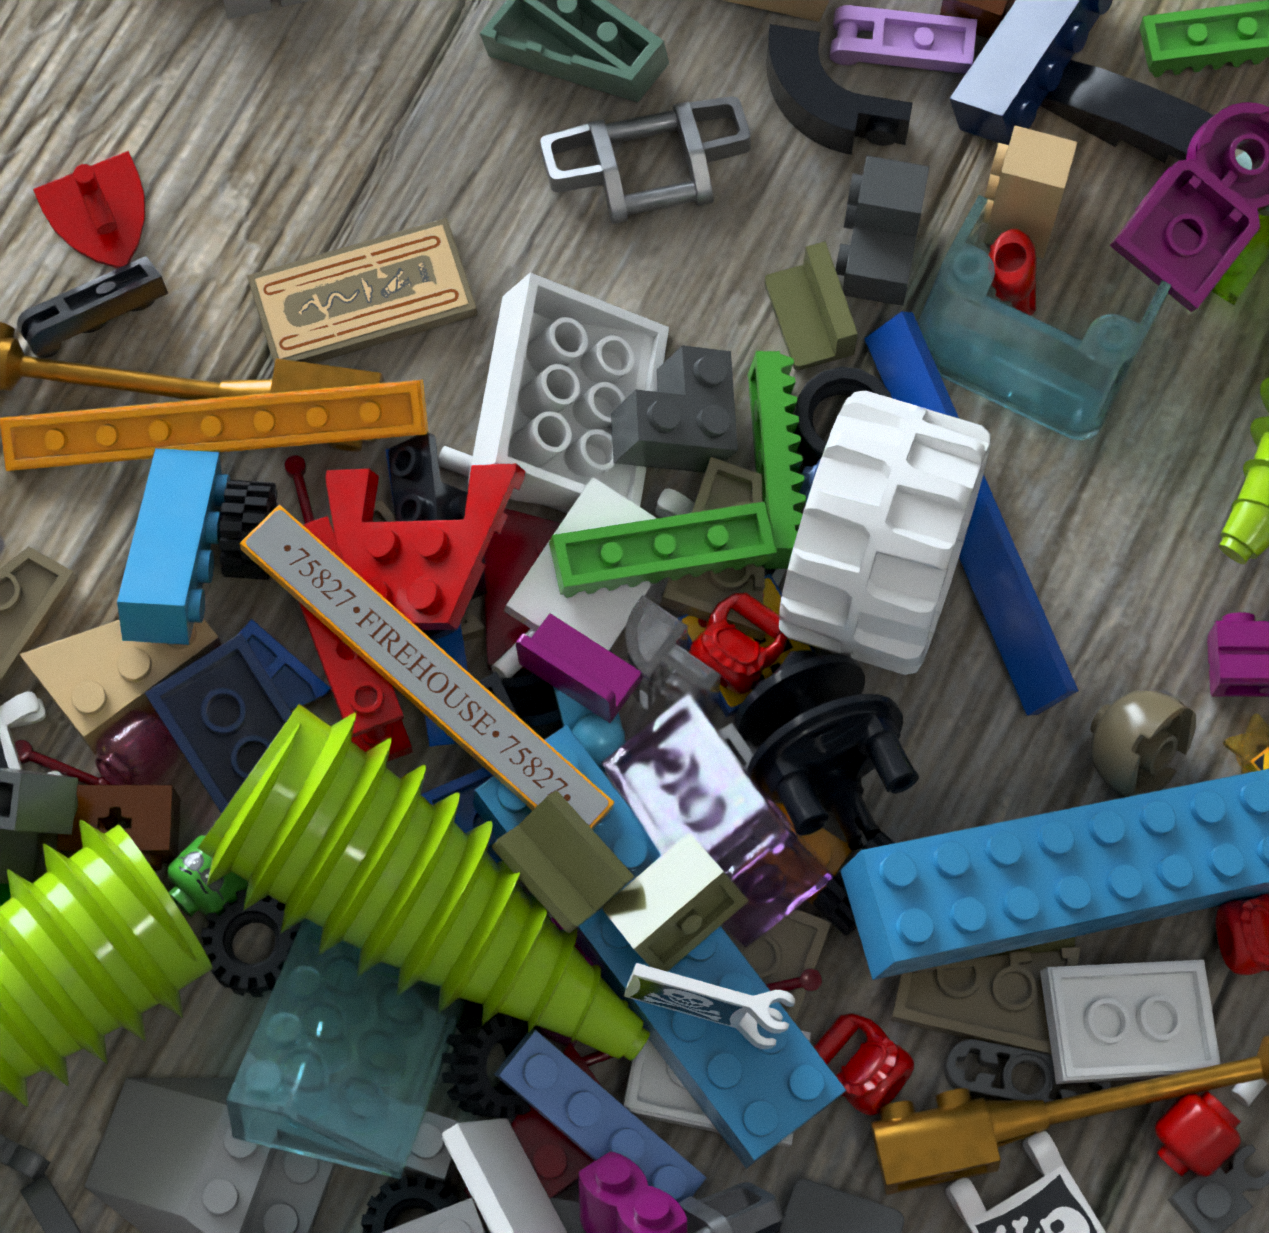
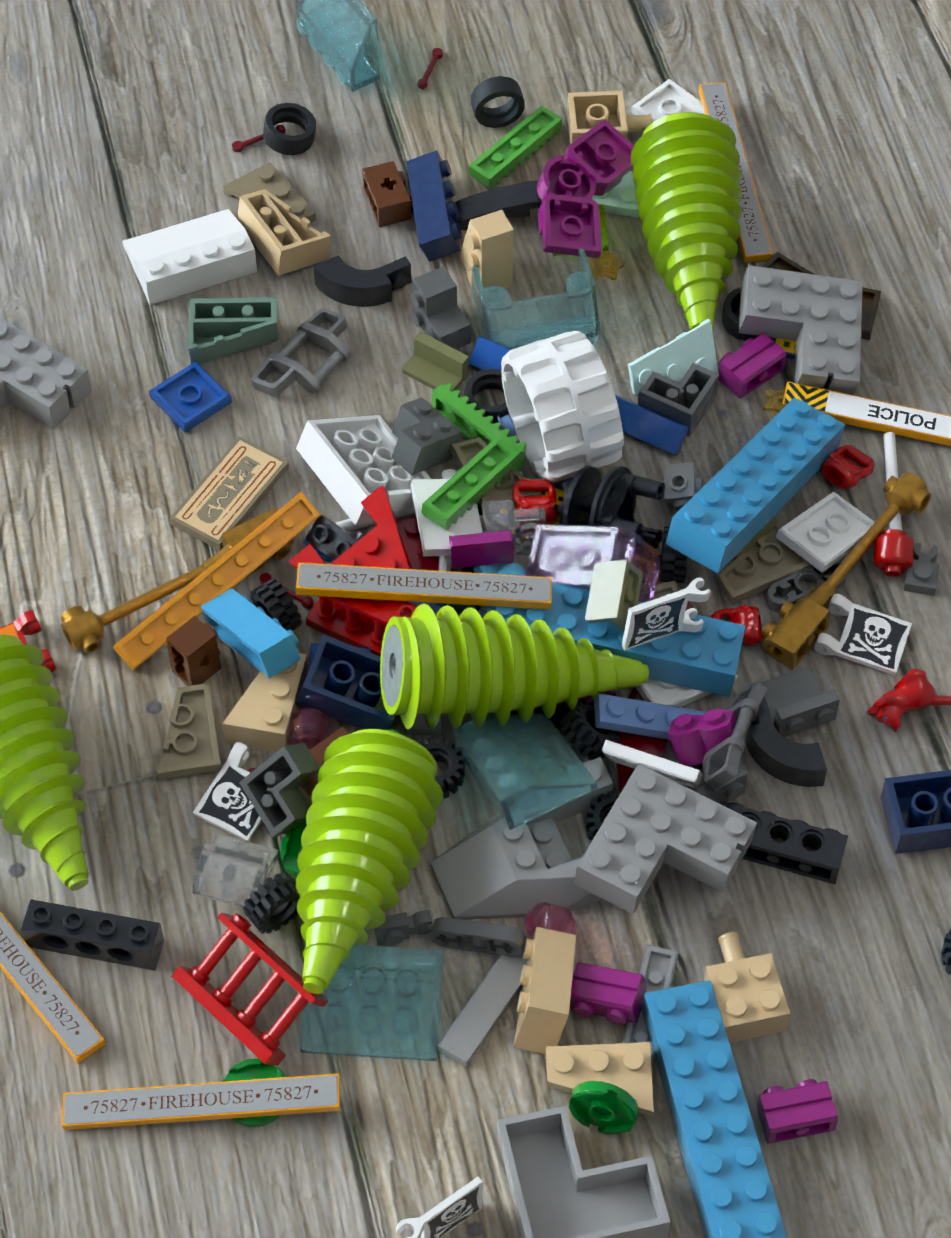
camera: 40 degrees left, 15 degrees down
(83, 514) = (194, 652): none -> reddish brown brick
(90, 306) = (109, 576): black plate -> none
(98, 209) = (69, 542): red shield -> none
(441, 104) = (190, 396): none -> blue tile
(563, 862) = (554, 607): olive panel -> none
(903, 39) = (373, 239): lavender plate -> none
(978, 781) = (681, 483): none -> light grey brick
(1015, 270) = (511, 282): red piece -> none
(1106, 646) = (681, 401): none -> dark grey brick
(1139, 739) = (729, 425): dark tan cylinder -> none
(1159, 573) = (676, 357): none -> light aqua wing
(1206, 339) = (609, 259): none -> clear yellow plate

